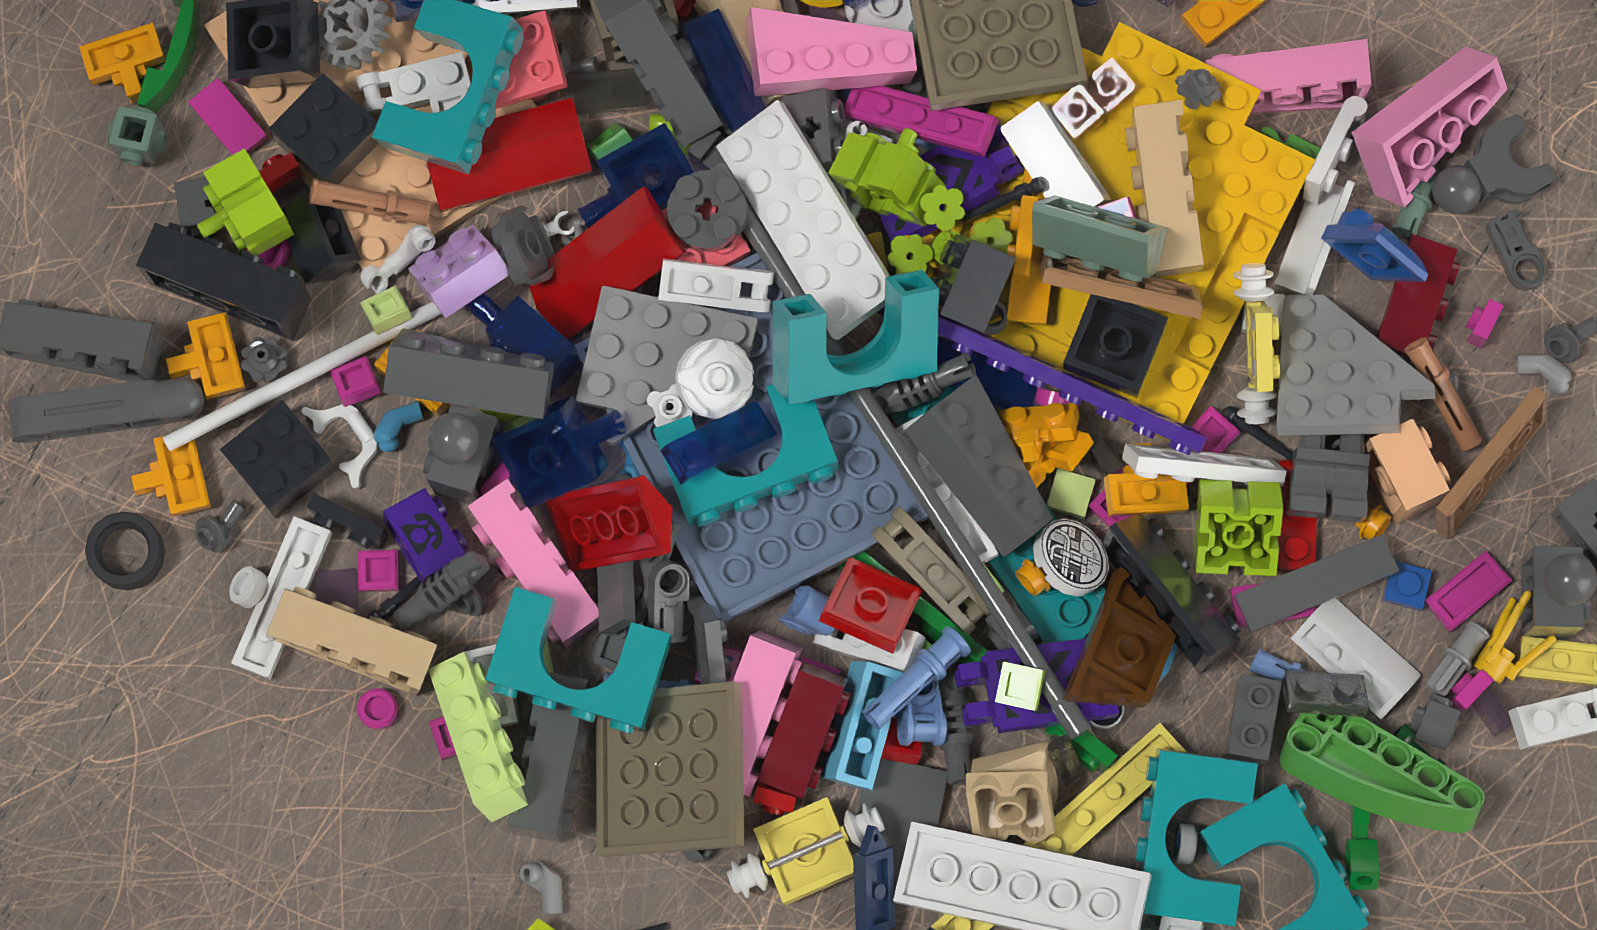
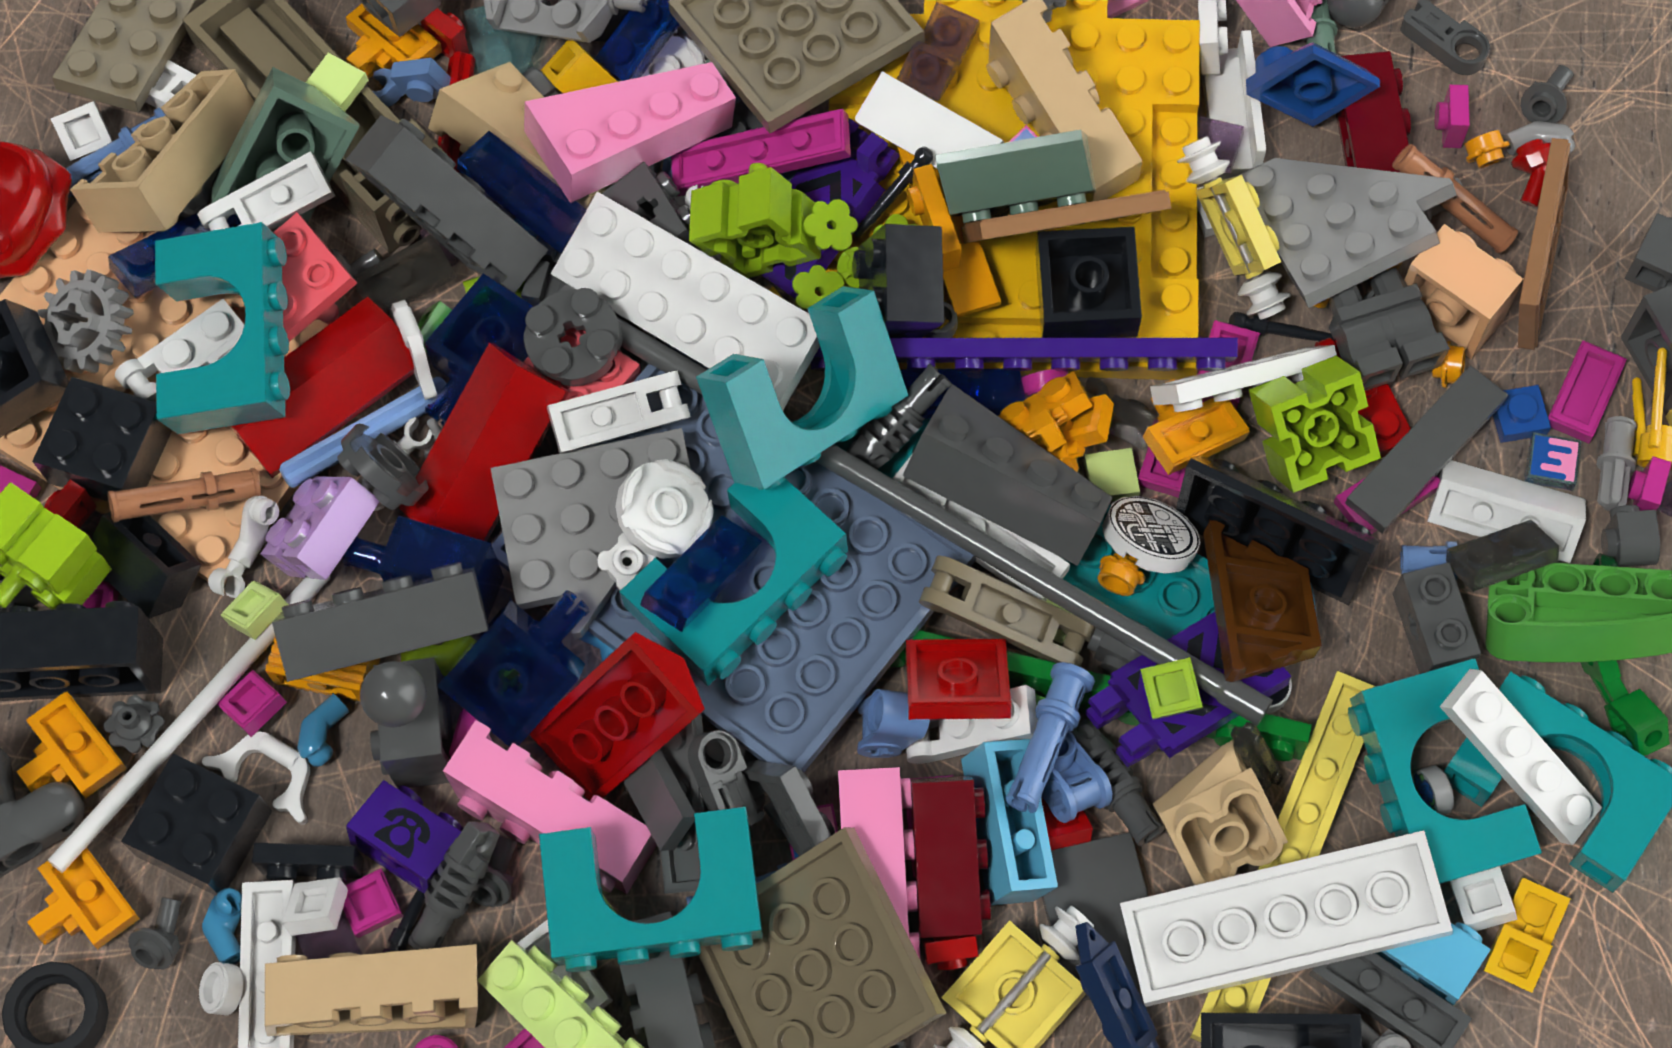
camera: 25 degrees left, 10 degrees down
(266, 538) = (221, 924): none -> dark azure arm
(338, 558) = (315, 906): none -> white plate
(536, 203) = (384, 421): none -> light blue axle
(589, 155) = (413, 339): none -> white helmet
(1255, 850) = (1521, 756): none -> white plate
(1287, 262) = (1227, 133): none -> clear purple tile
(1411, 634) = (1552, 461): none -> tile
(1496, 361) = (1486, 149): none -> light orange plate
(1522, 387) = (1533, 160): none -> red plate

